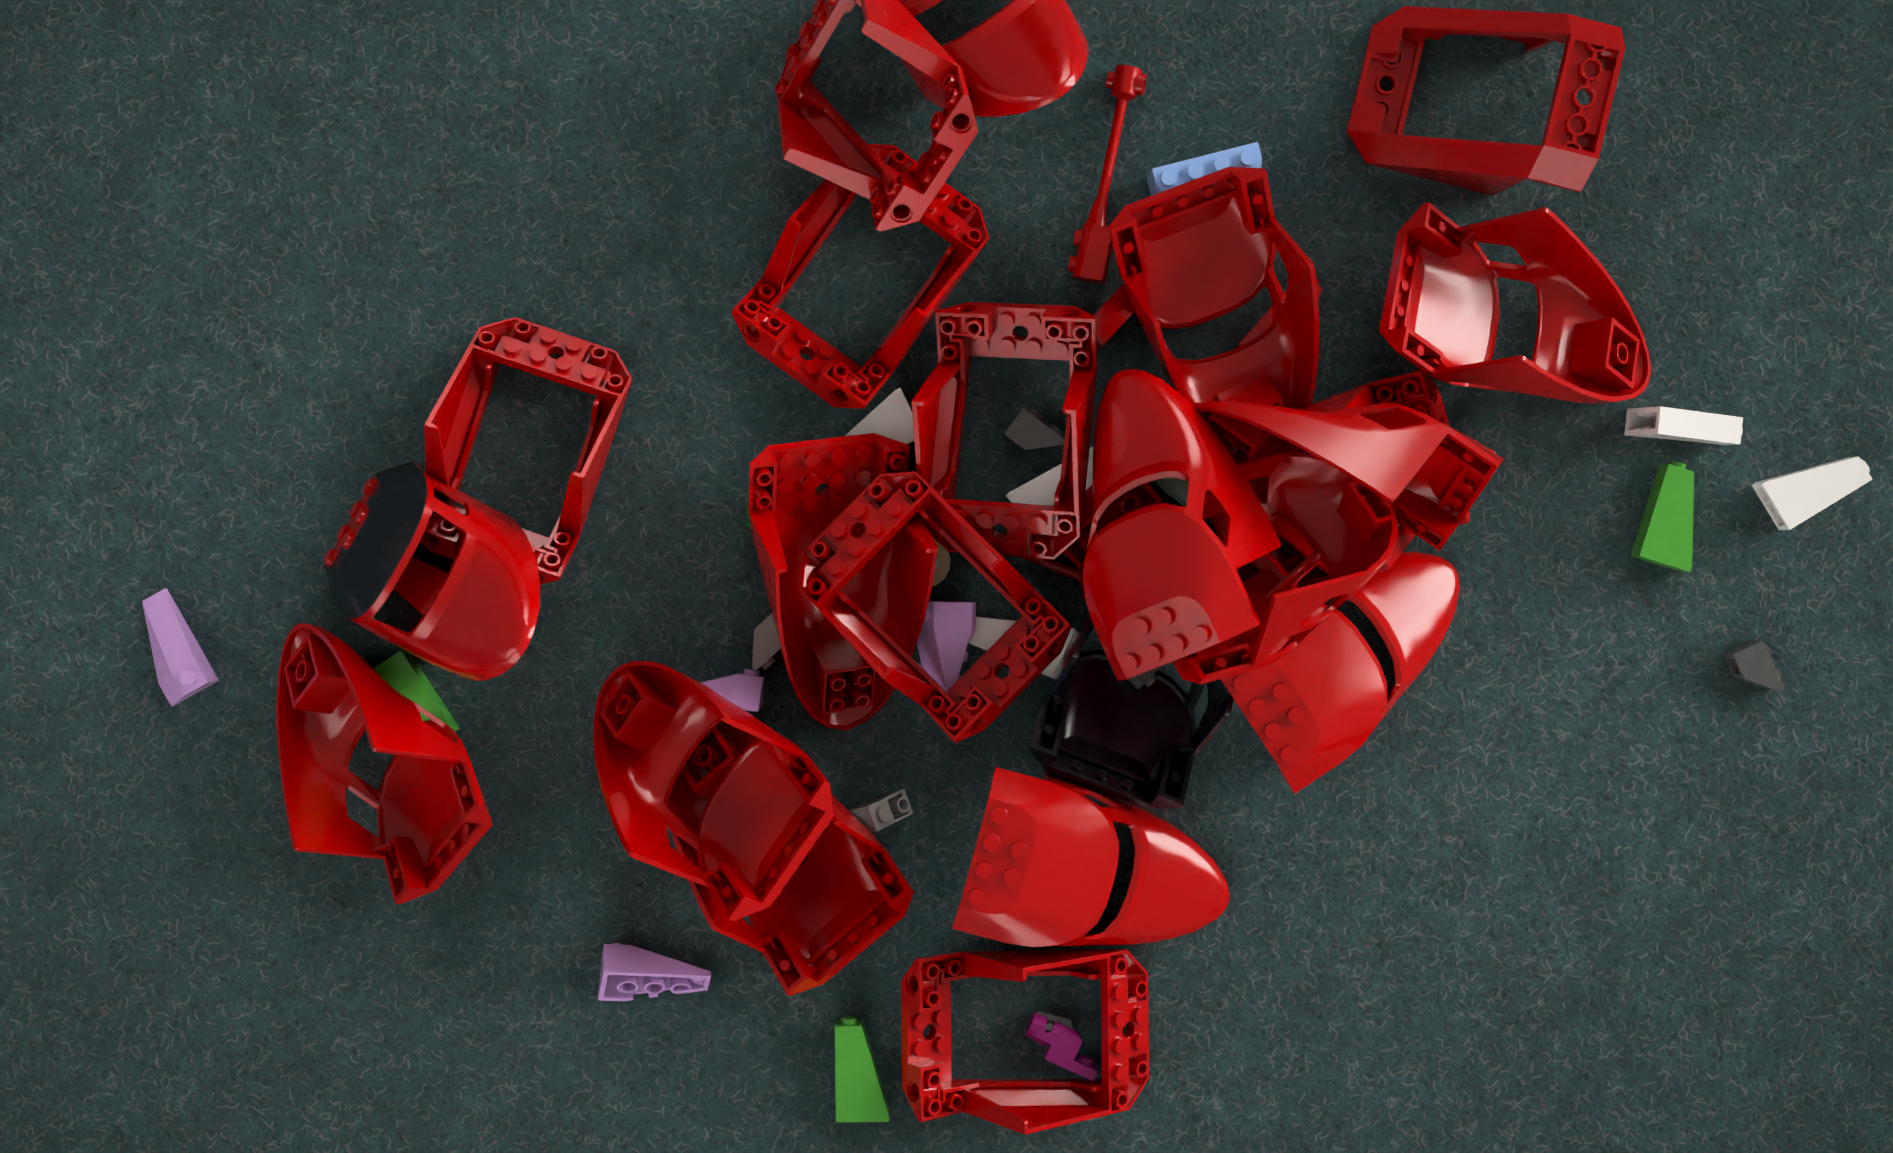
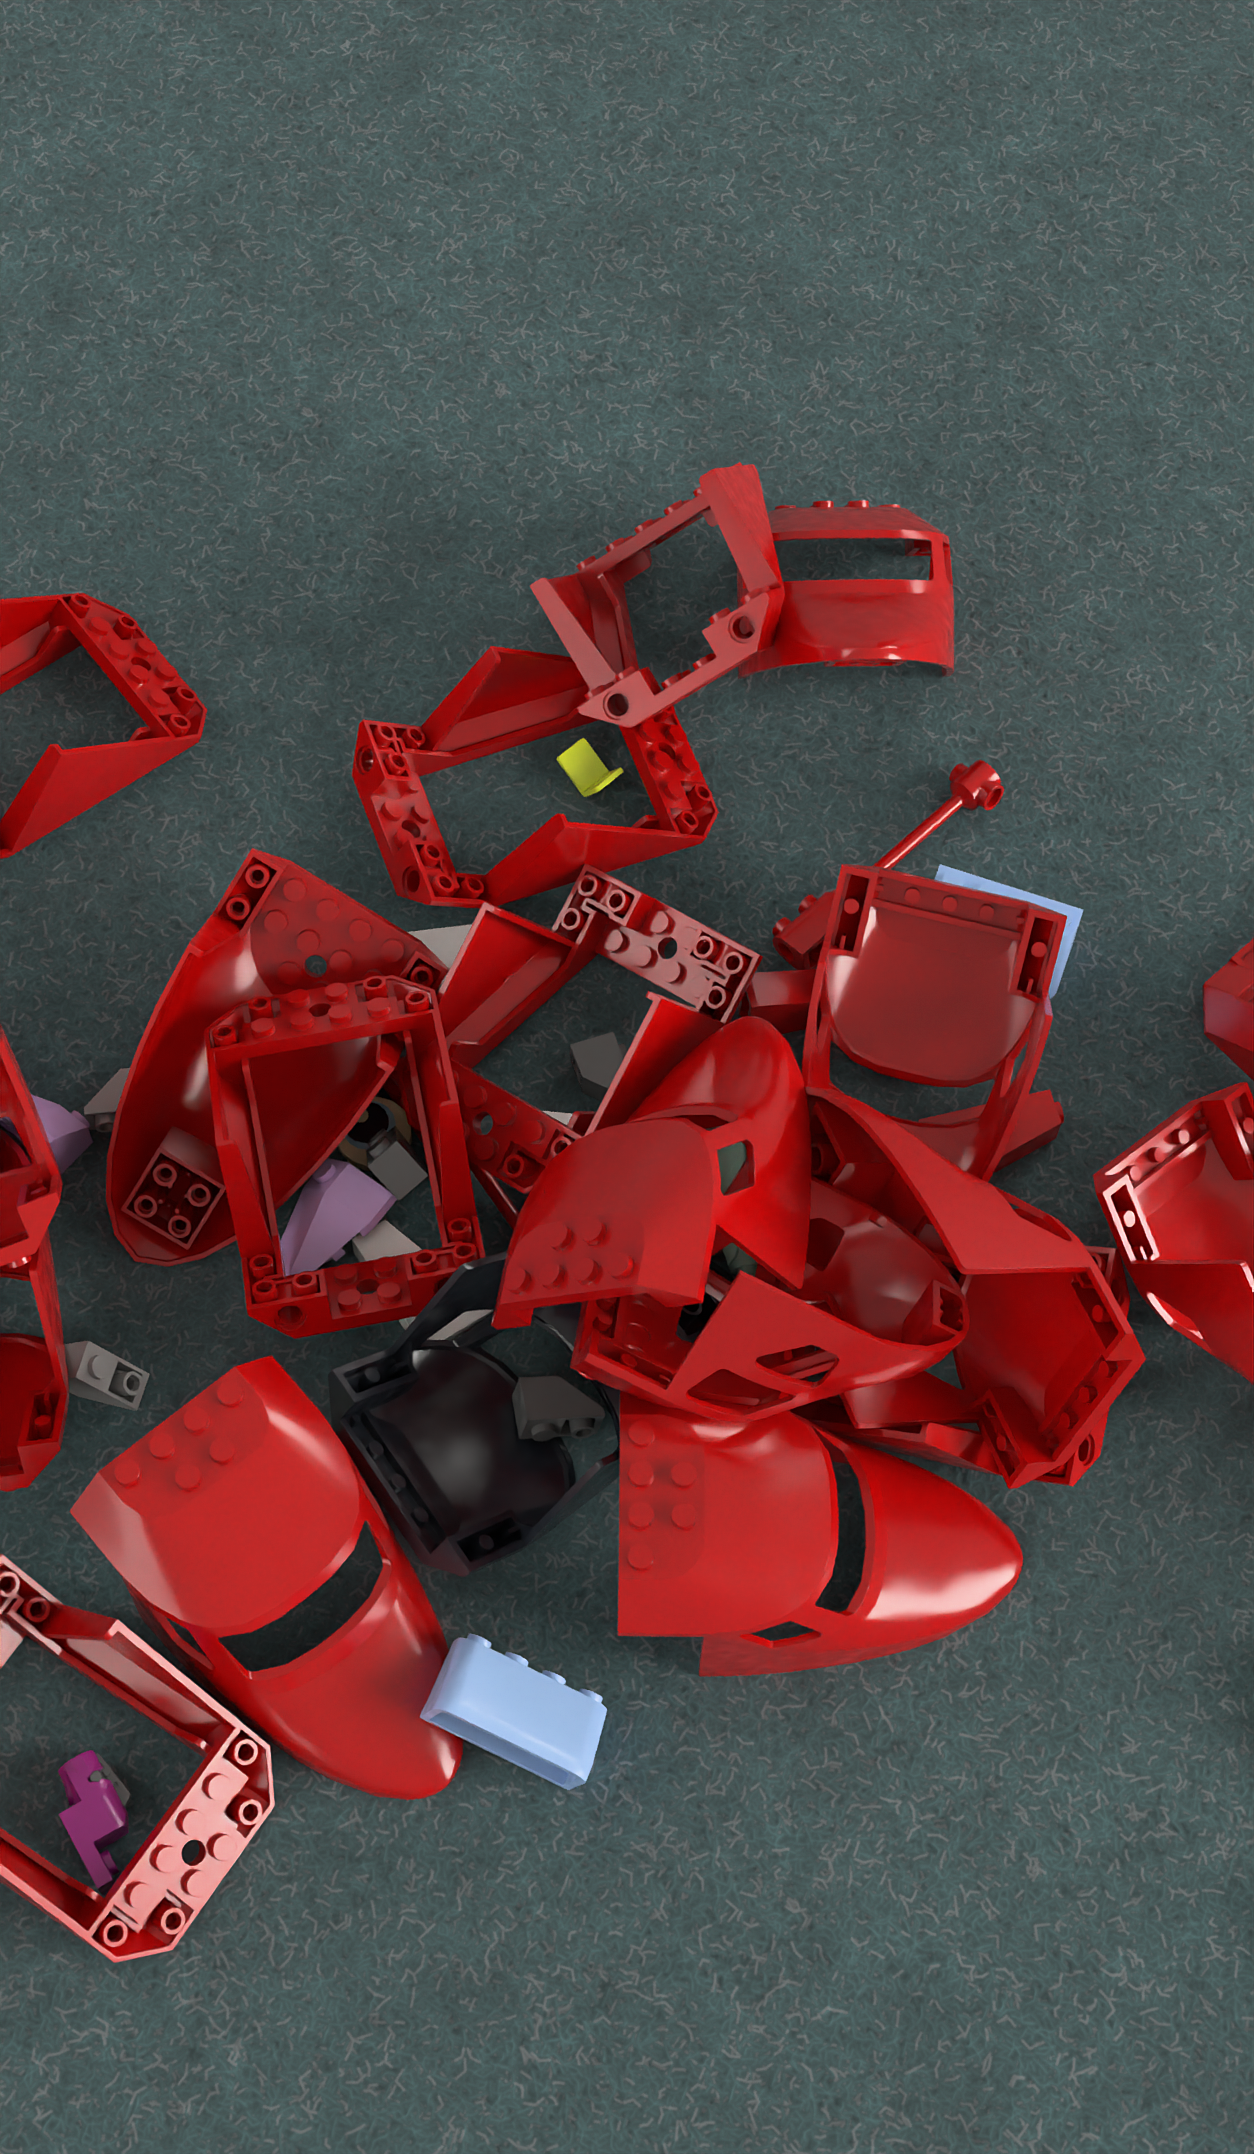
camera: 35 degrees right, 25 degrees down
(884, 239) = (586, 768): none -> neon yellow bracket
(959, 581) = (395, 1162): none -> dark grey slope
(1247, 847) = (517, 1712): none -> light blue windscreen

